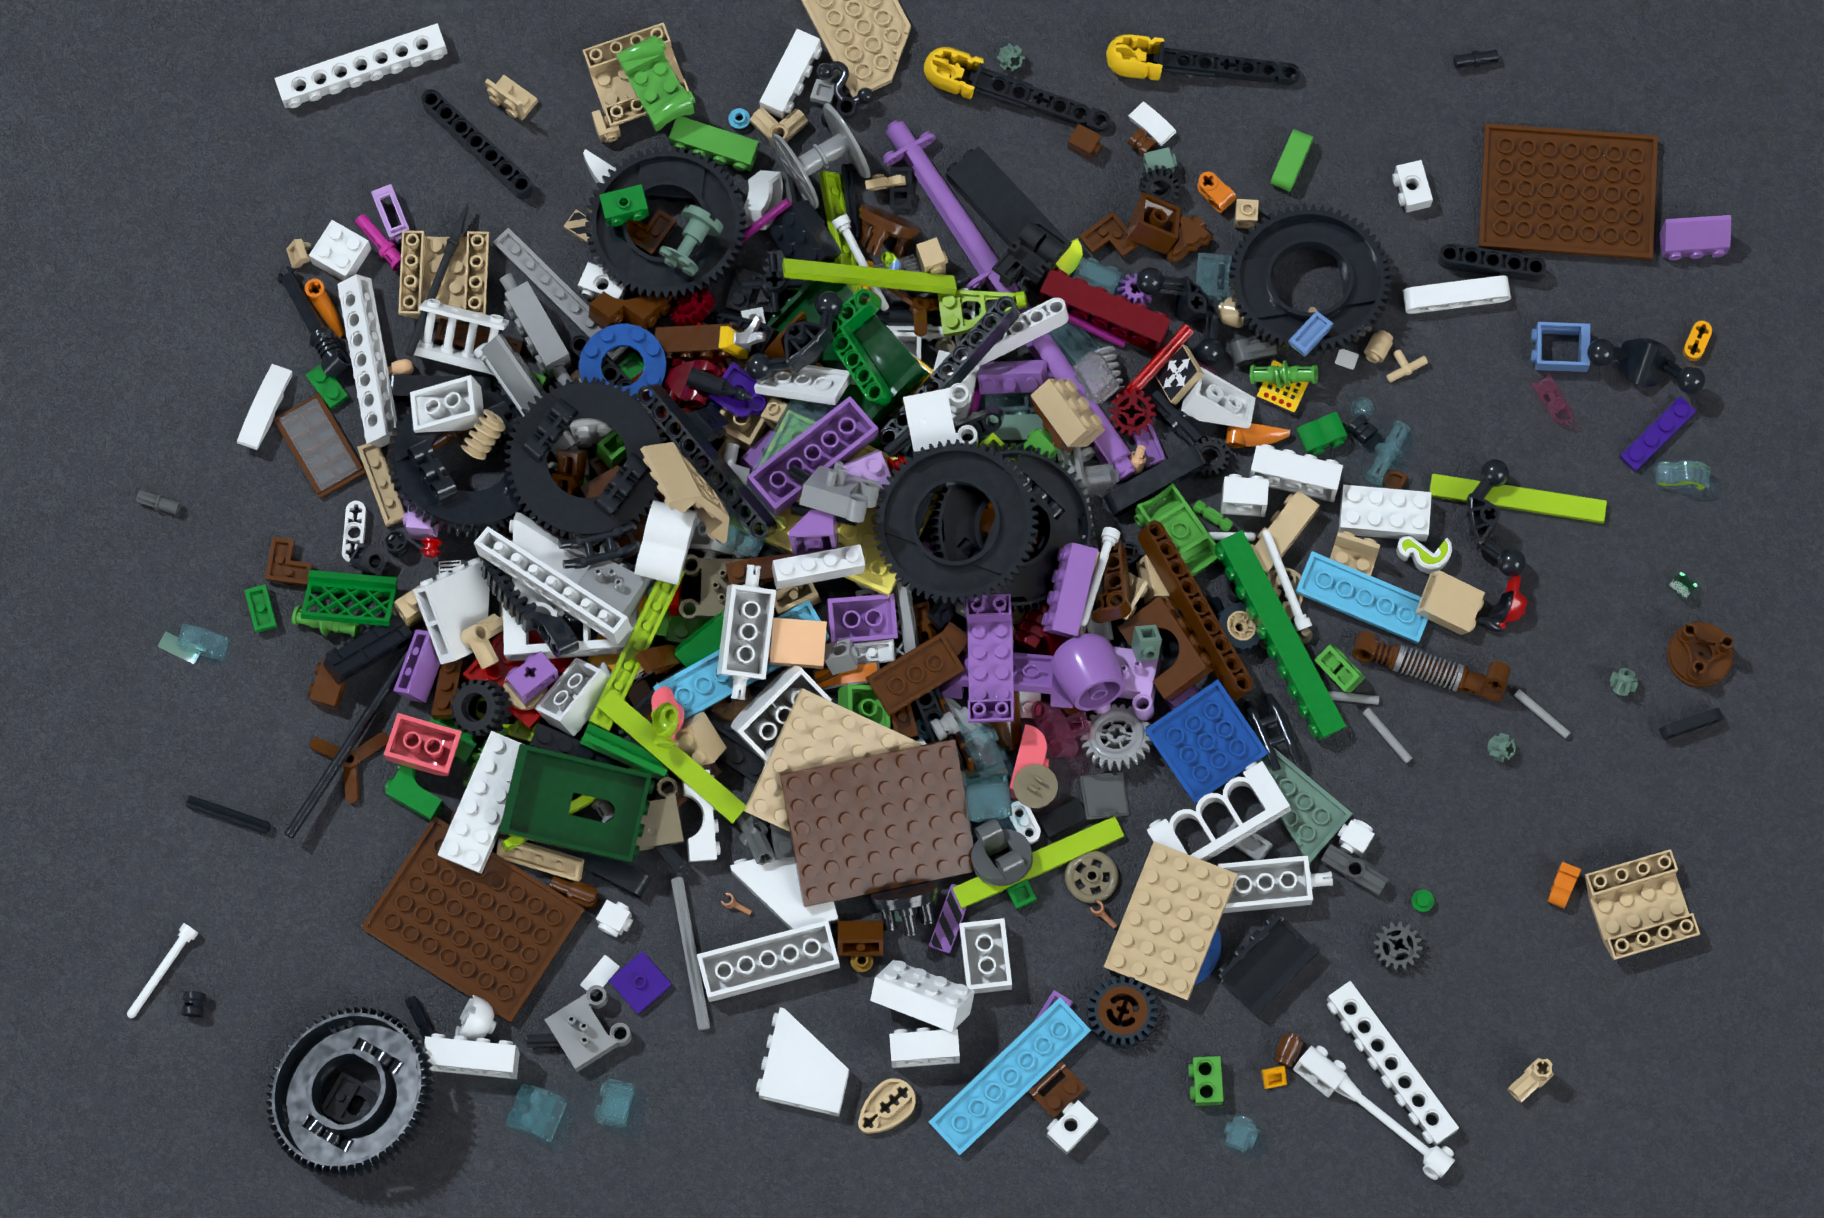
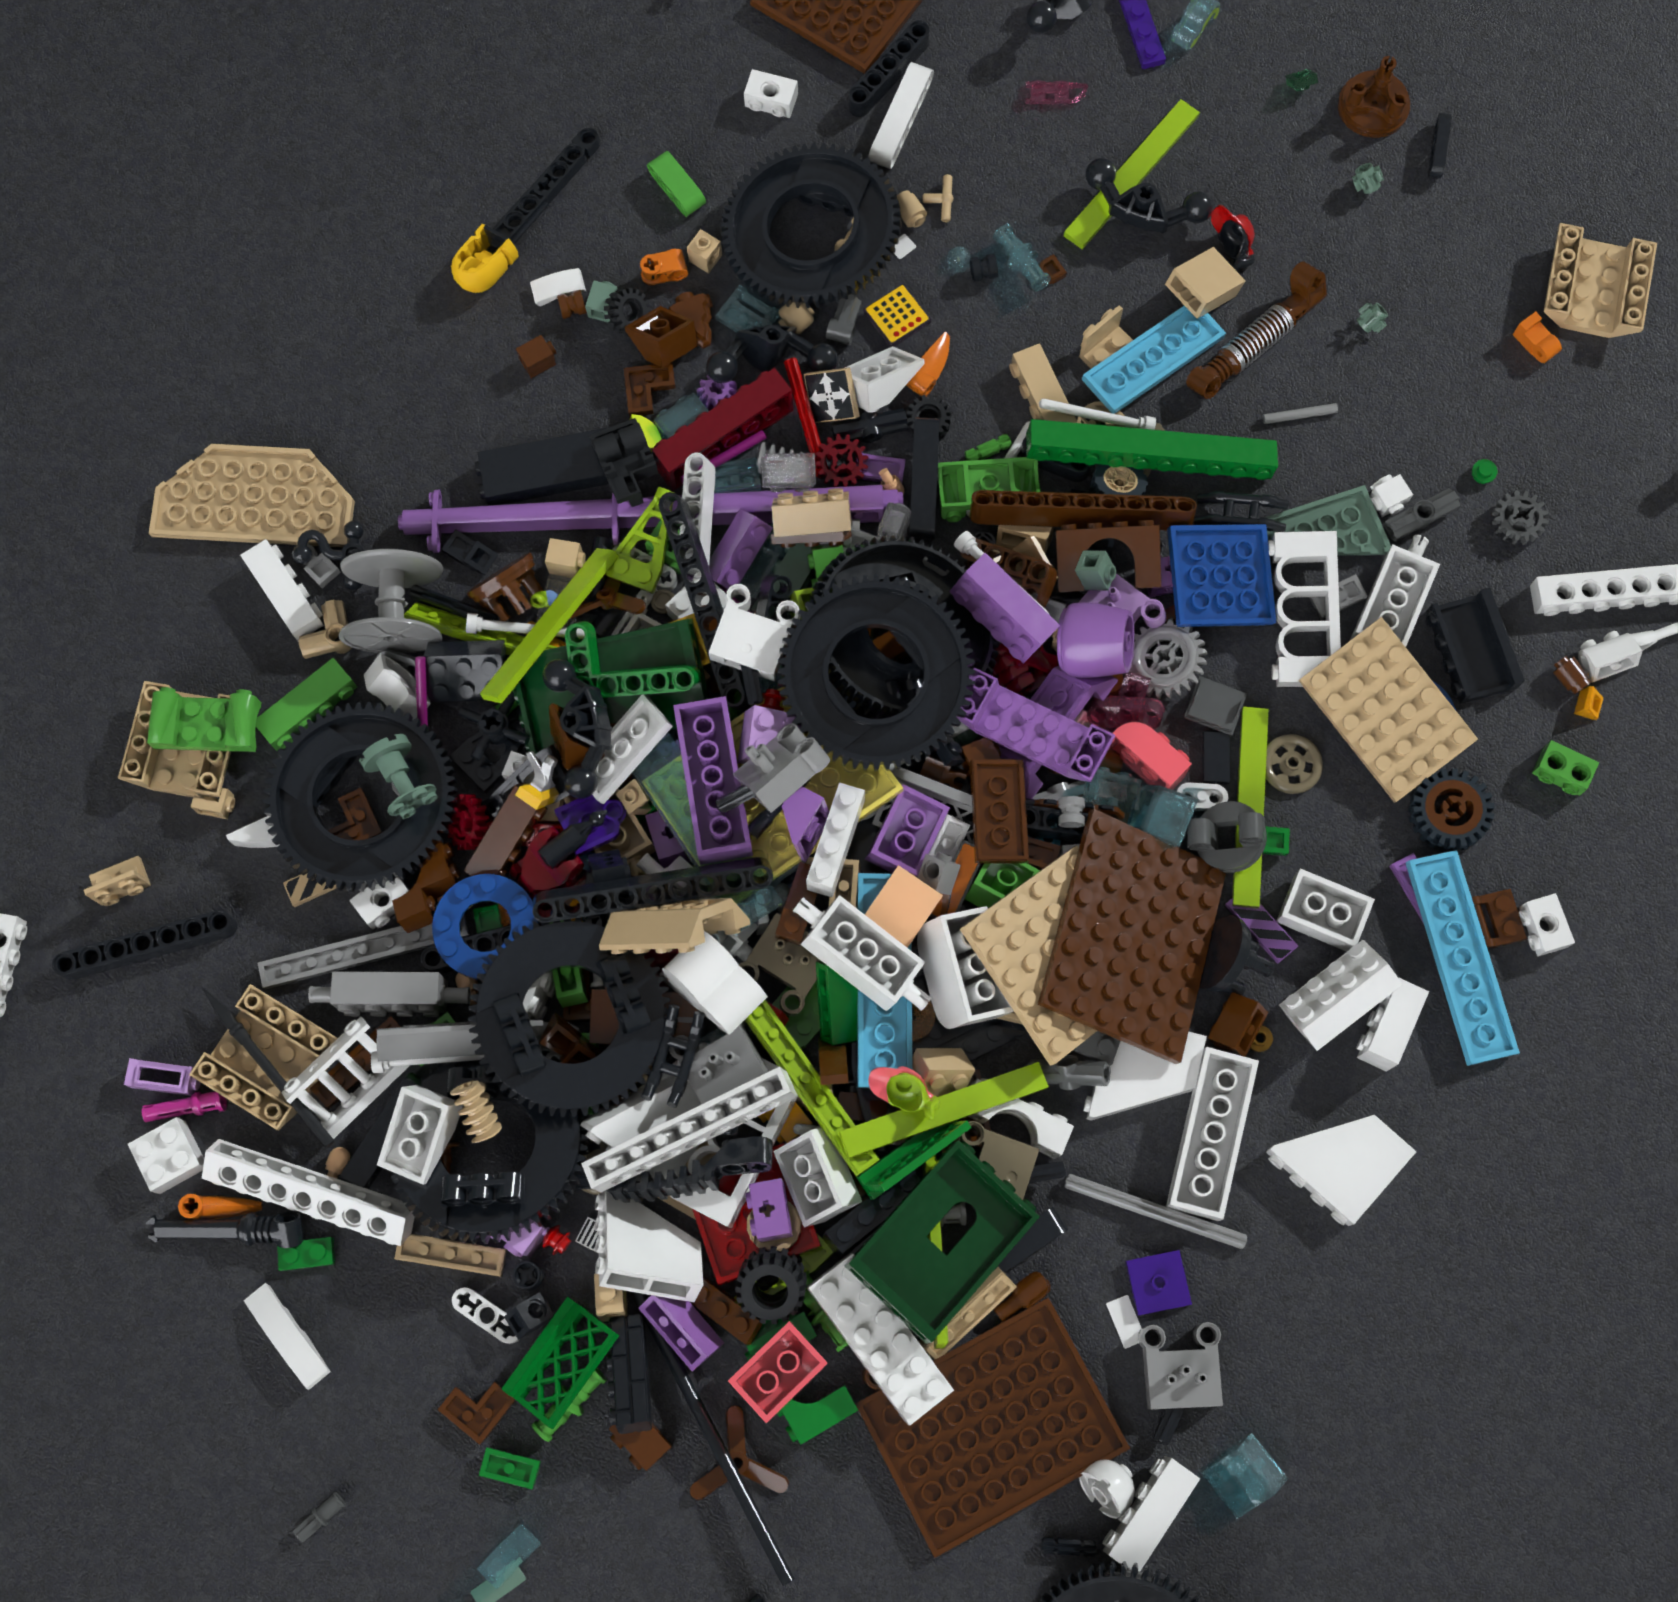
camera: 60 degrees left, 0 degrees up
(297, 253) = (139, 1202): tan tile -> none
(319, 446) = (366, 1300): clear piece -> none
(477, 639) = (691, 1243): tan piece -> none
(614, 918) = (1076, 1271): white brick -> none
(615, 1104) = (1279, 1383): clear light blue brick -> none
(624, 205) = (316, 825): green brick -> none
(733, 904) = (1130, 1133): nougat hand -> none
(739, 124) = (299, 672): medium azure plate -> none
(880, 182) = (452, 567): tan plate -> none
(881, 1095) = (1412, 1099): tan piece -> none
(939, 71) = (379, 443): piece -> none
(1010, 57) = (405, 375): sand green gear -> none
(1035, 786) = (1183, 759): dark tan piece -> none
(1101, 913) = (1338, 774): nougat hand -> none
(1241, 1134) = (1636, 766): clear light blue brick -> none
(1244, 495) = (990, 404): white brick -> none
(1284, 375) = (888, 302): bright green piece -> none
(1297, 472) = (994, 346): white brick -> none
(1310, 333) = (871, 248): medium blue tile -> none
(1321, 434) = (966, 306): green brick -> none
(1340, 668) = (1214, 415): bright green brick -> none
(1352, 697) = (1247, 419): light grey bar -> none
(1385, 512) = (1079, 292): white brick -> none
(1423, 558) = (1142, 284): white animal -> none
(1541, 713) = (1358, 266): light grey bar -> none
(1580, 329) = (1017, 35): medium blue window -> none

